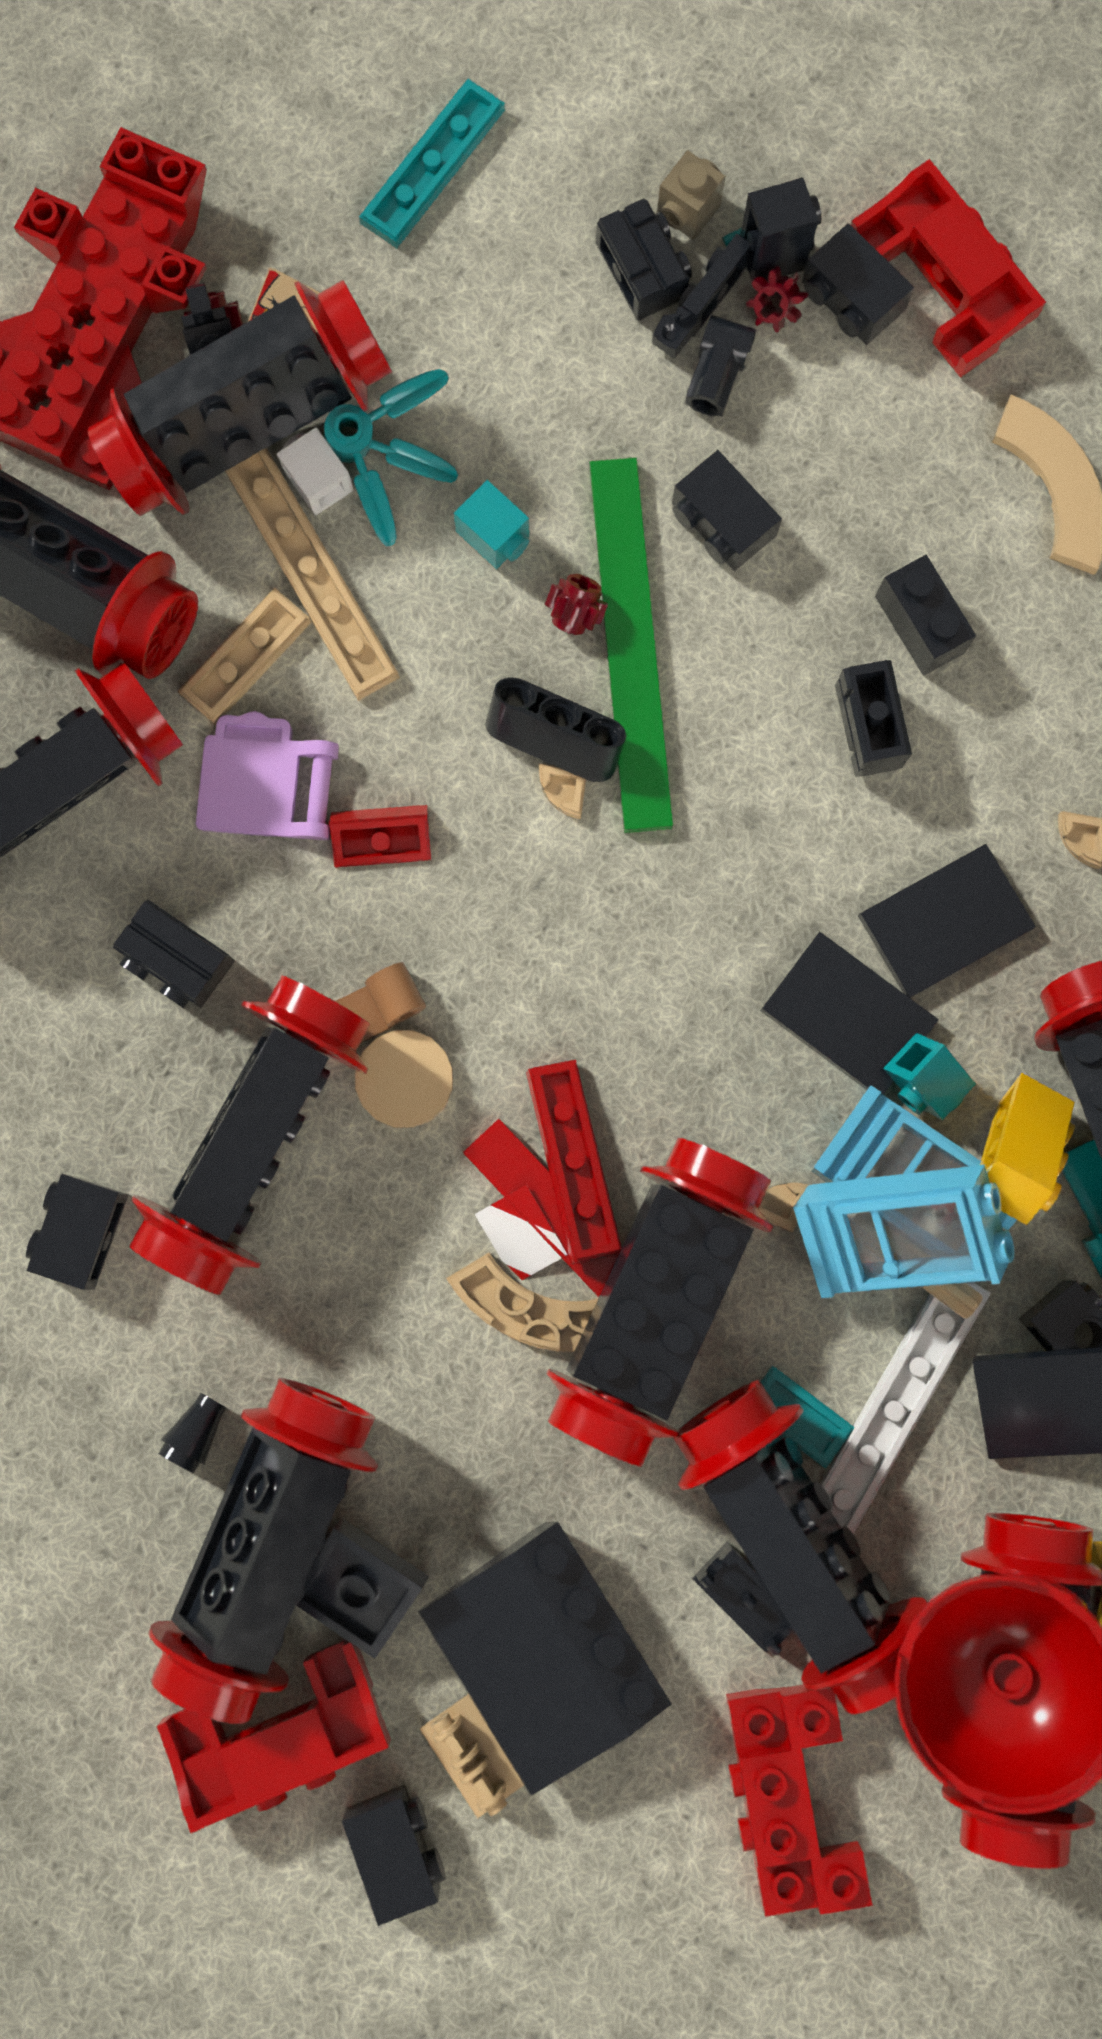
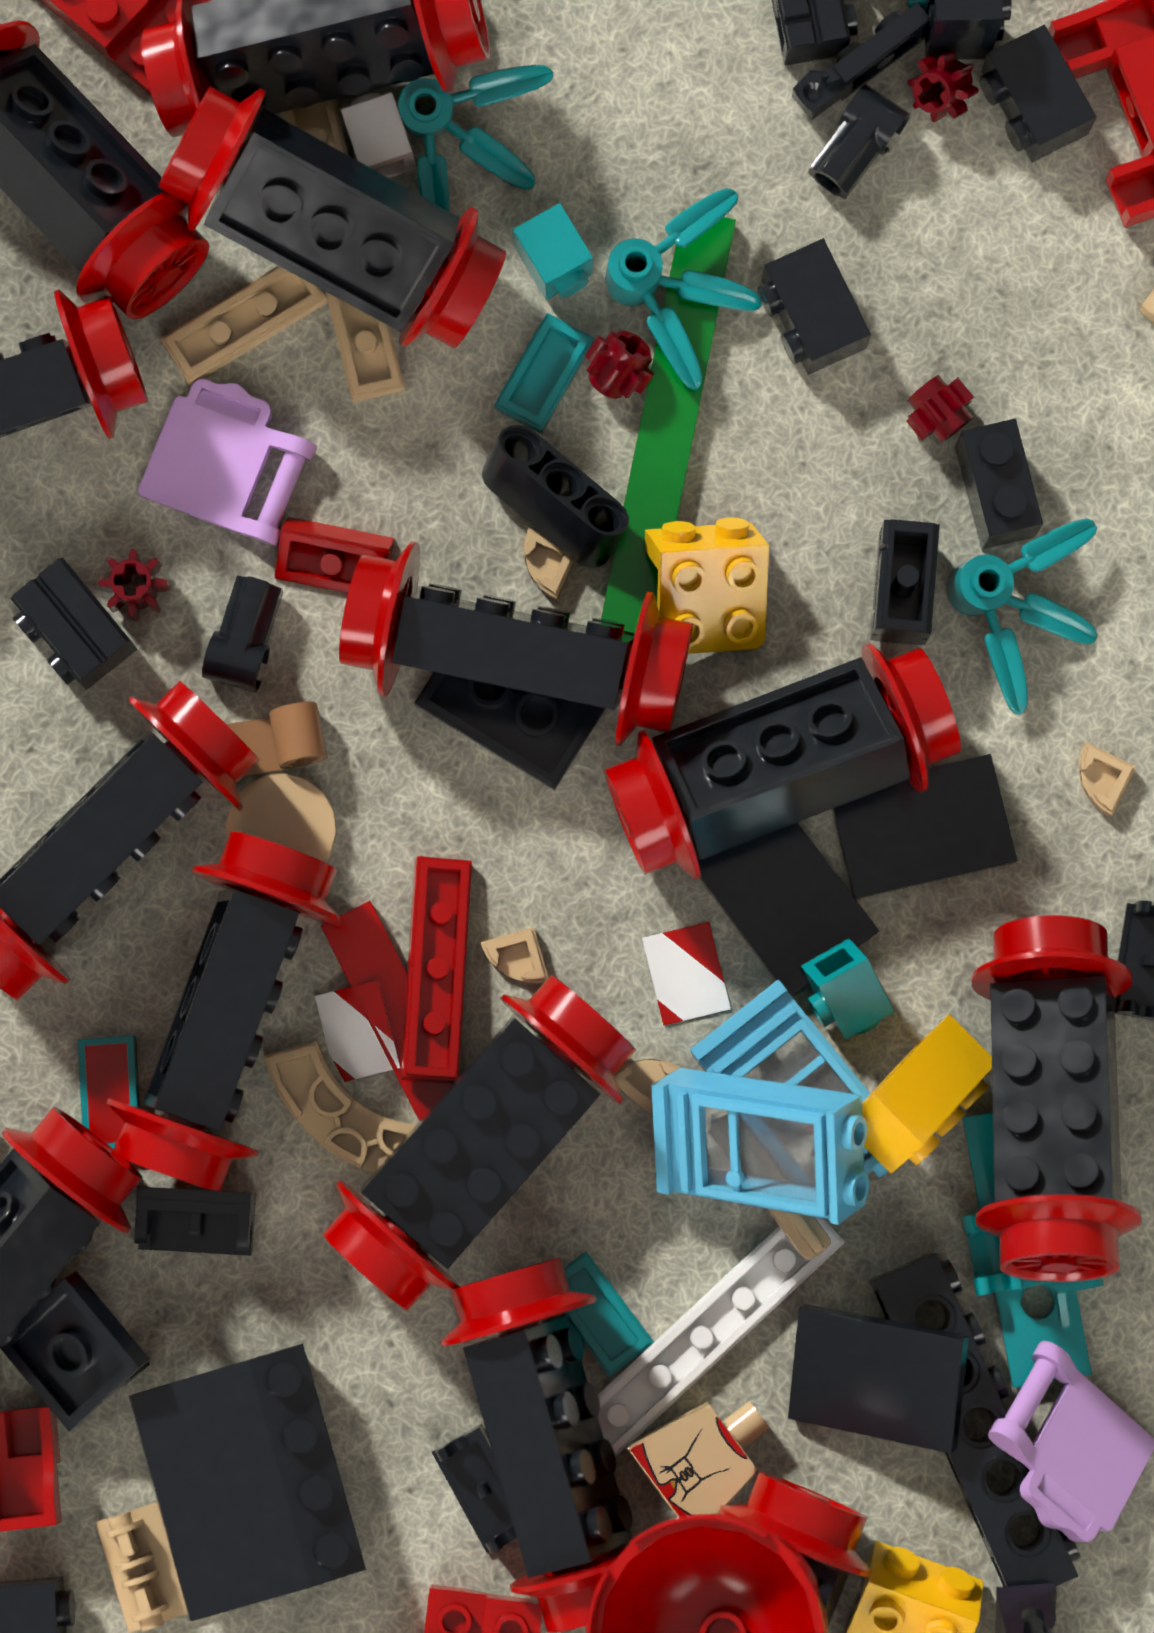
camera: 20 degrees right, 0 degrees up
(228, 910) = (145, 594): none -> dark red gear
(298, 542) = (332, 220): none -> black brick
(322, 1347) = (107, 1071): none -> red tile
(323, 930) = (241, 644): none -> black piece
(403, 1253) = (222, 1009): none -> brick
(429, 1438) = (195, 1220): none -> black hinge
(513, 630) = (544, 373): none -> teal tile
(563, 867) = (491, 643): none -> brick
(568, 520) = (640, 287): none -> teal plant
(569, 913) = (519, 726): none -> black tile
(638, 1129) = (517, 956): none -> tan tile
(709, 768) = (713, 580): none -> yellow bracket
(785, 1102) = (686, 973): none -> white sticker
(820, 895) = (783, 758): none -> black brick
(856, 566) = (940, 409): none -> dark red gear
(927, 1518) = (699, 1458): none -> tan torso
(945, 699) = (1039, 611): none -> teal plant

